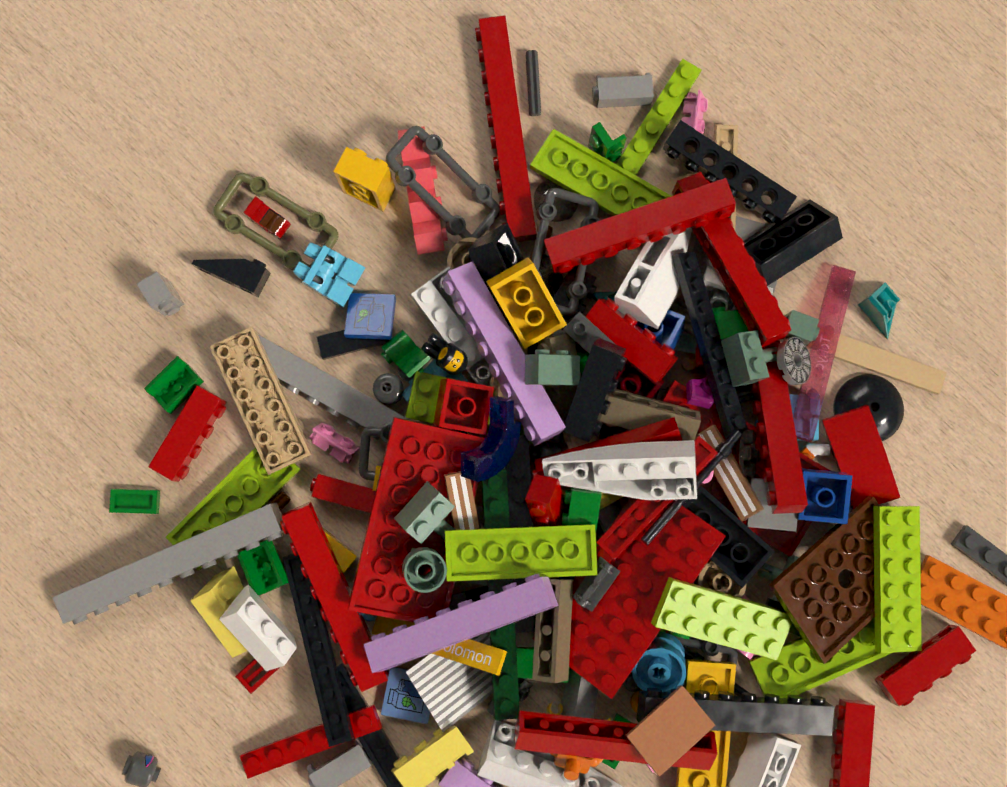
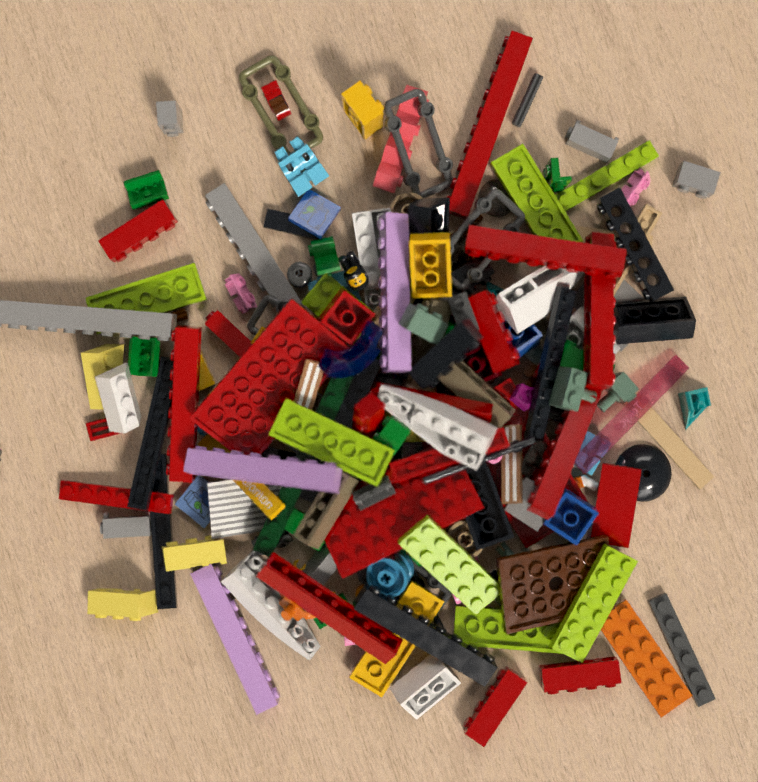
camera: 25 degrees right, 5 degrees up
(134, 501) = (75, 260): green tile -> none
(237, 272) = (235, 131): black slope -> none
(261, 400) = (203, 234): tan plate -> none
(425, 513) = (278, 379): sand green brick -> none
(429, 581) = (257, 428): sand green piece -> none
(670, 730) = (371, 620): nougat tile -> none
(753, 73) = (696, 180): none -> light grey brick
(794, 361) = (600, 418): tile -> none

